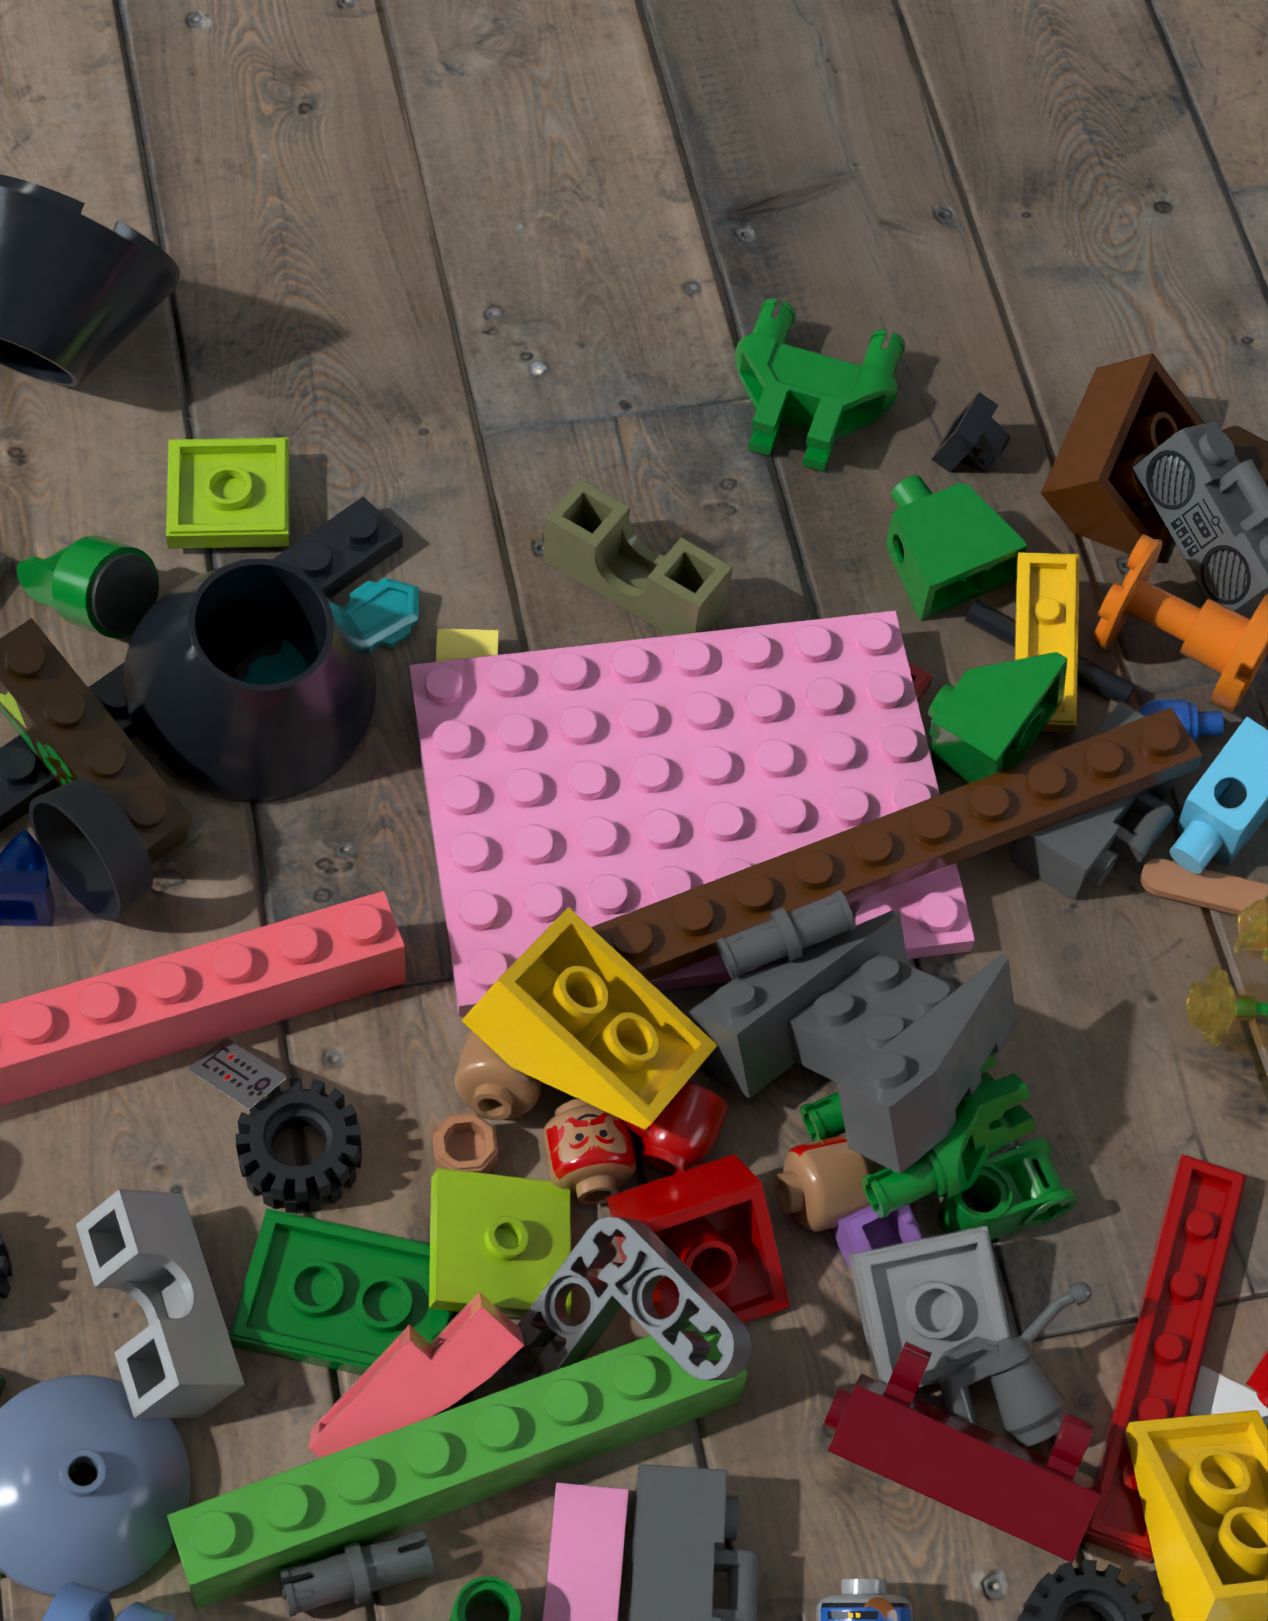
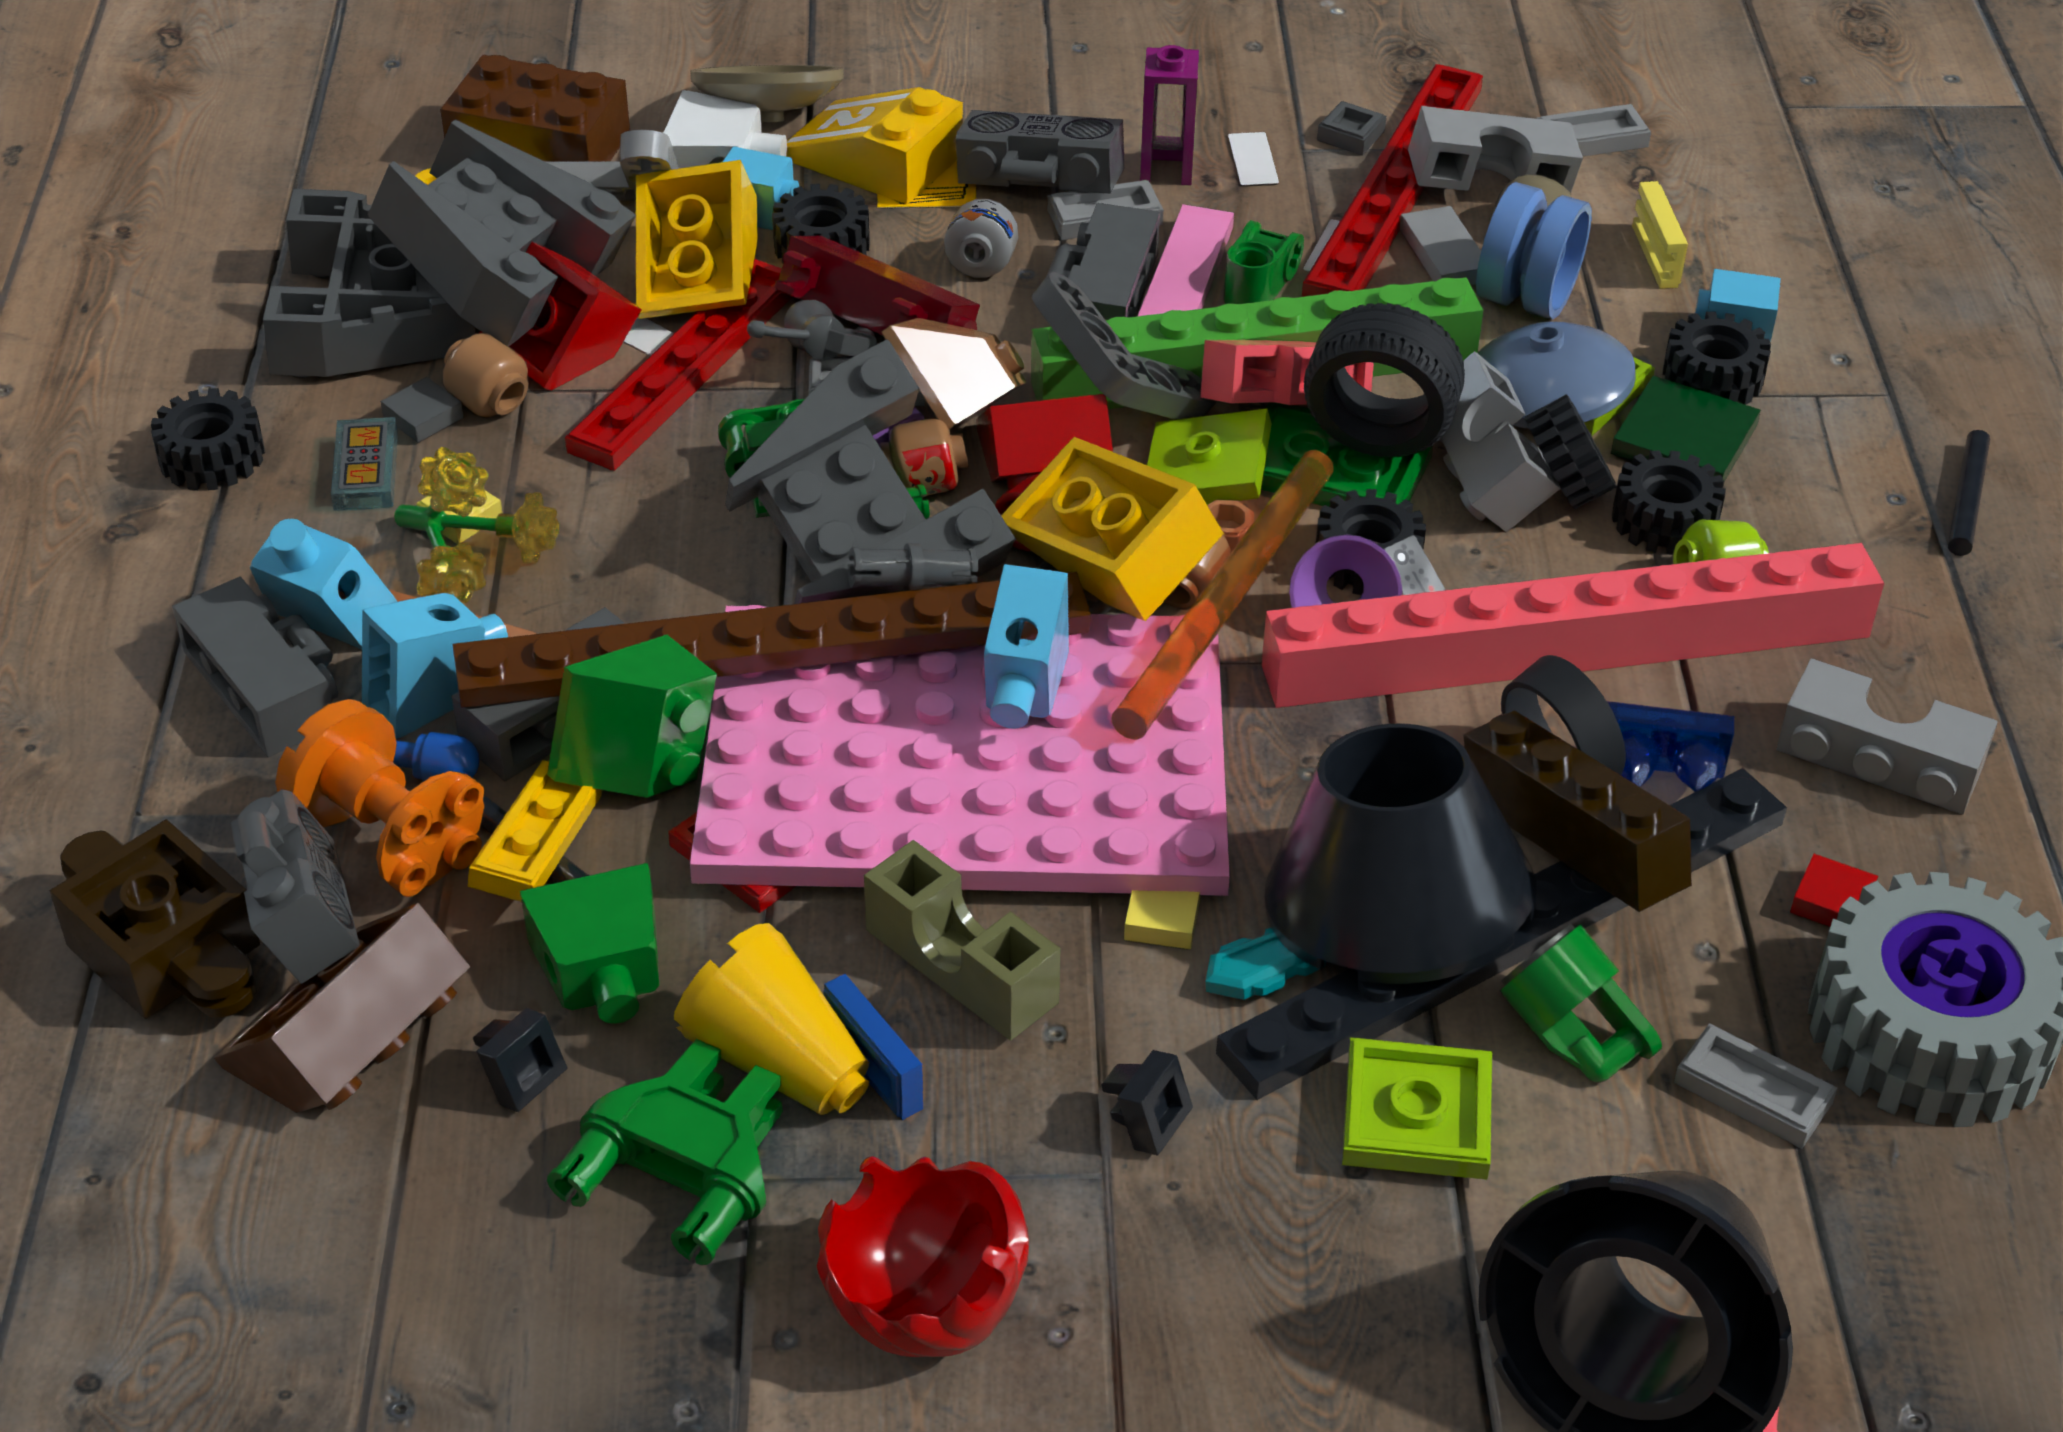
camera: 165 degrees left, 15 degrees down
(61, 1278) = (1570, 451): none -> black tyre
(293, 1291) = (1396, 339): none -> black tyre
(322, 1040) = (1338, 553): none -> medium lavender piece
(443, 1022) = (1221, 596): none -> clear orange piece
(456, 463) = (1150, 1100): none -> black tile
(598, 281) = (924, 1256): none -> red piece
(642, 808) = (1019, 672): none -> medium azure torso
(687, 480) = (892, 1066): none -> blue tile
(774, 469) = (774, 1016): none -> yellow cone
(830, 1272) = (956, 367): none -> slope

